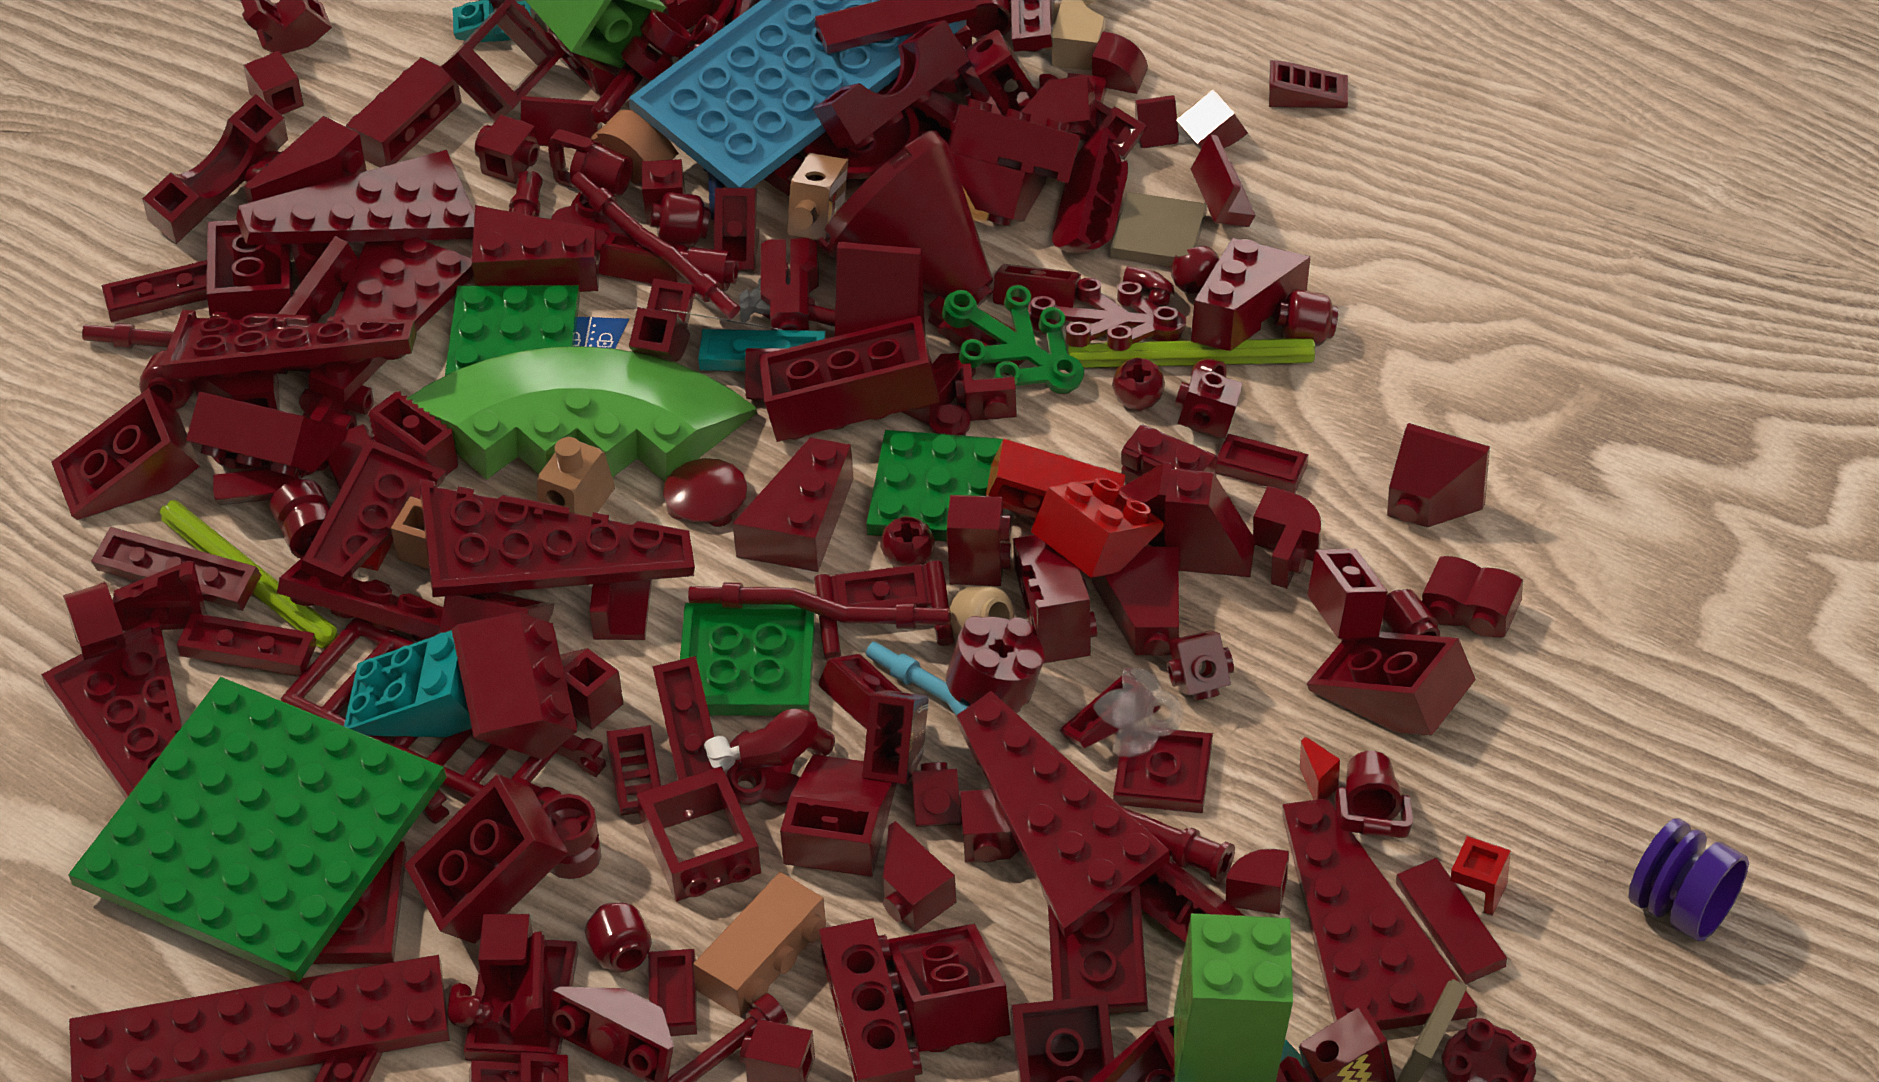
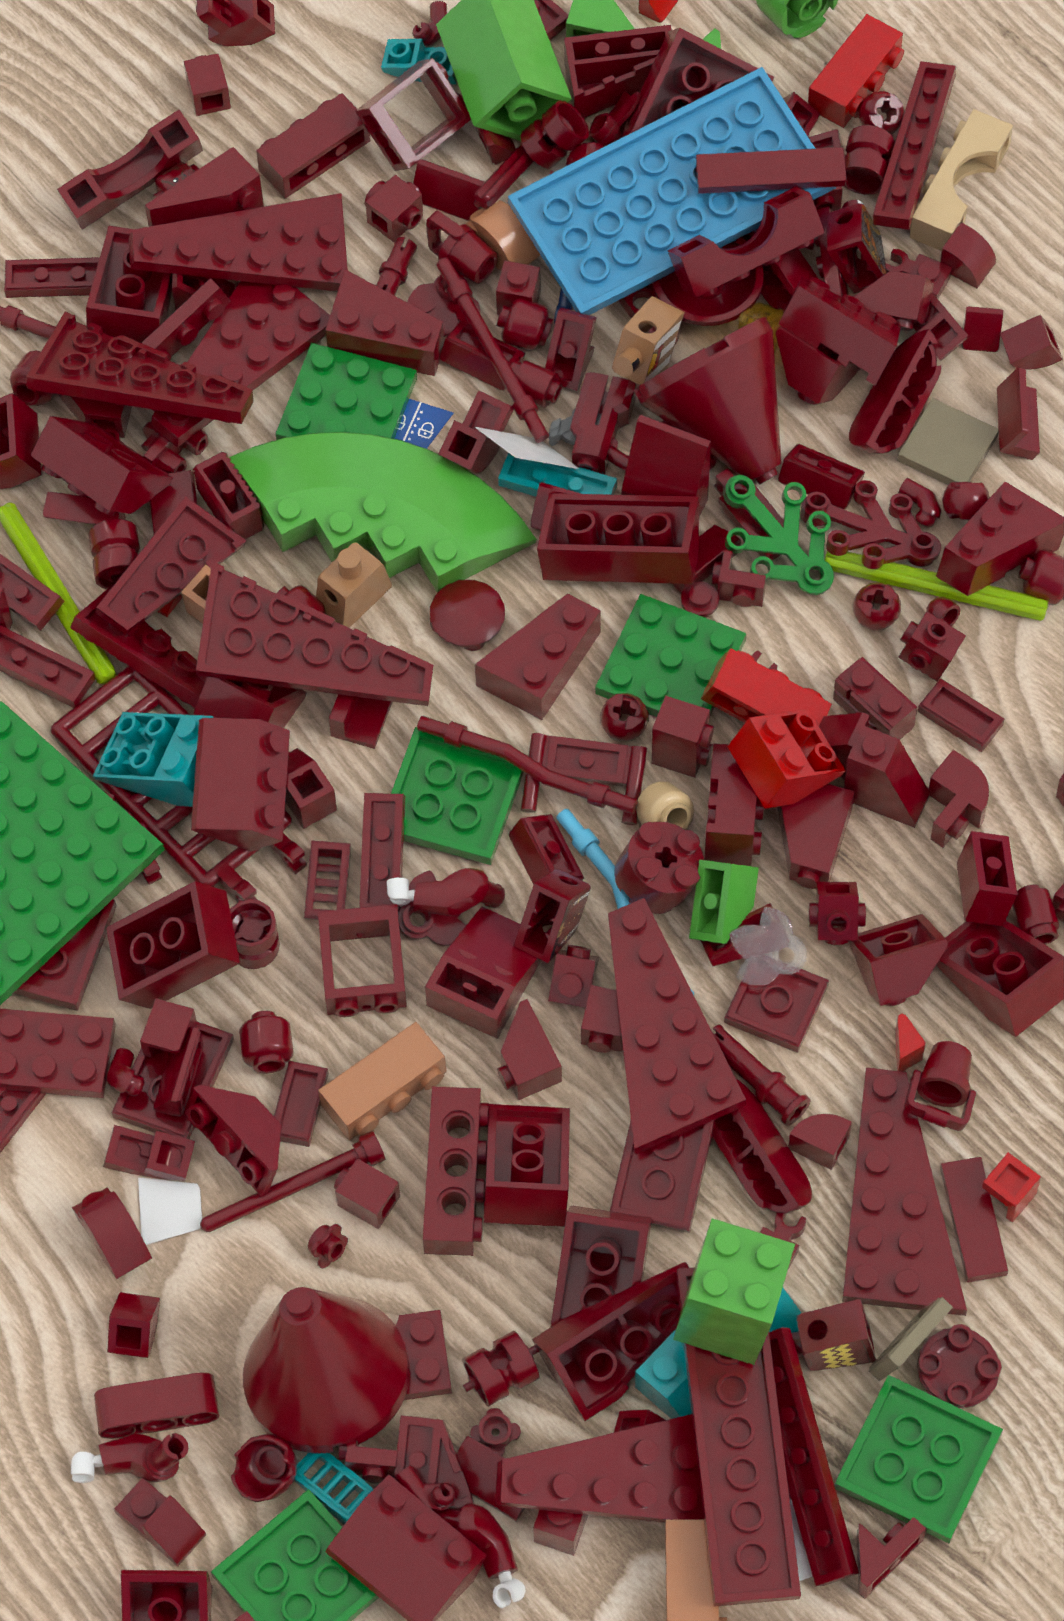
camera: 15 degrees right, 15 degrees up
(1072, 678) = (721, 899): none -> bright green slope
(1279, 694) = (898, 958): none -> dark red slope

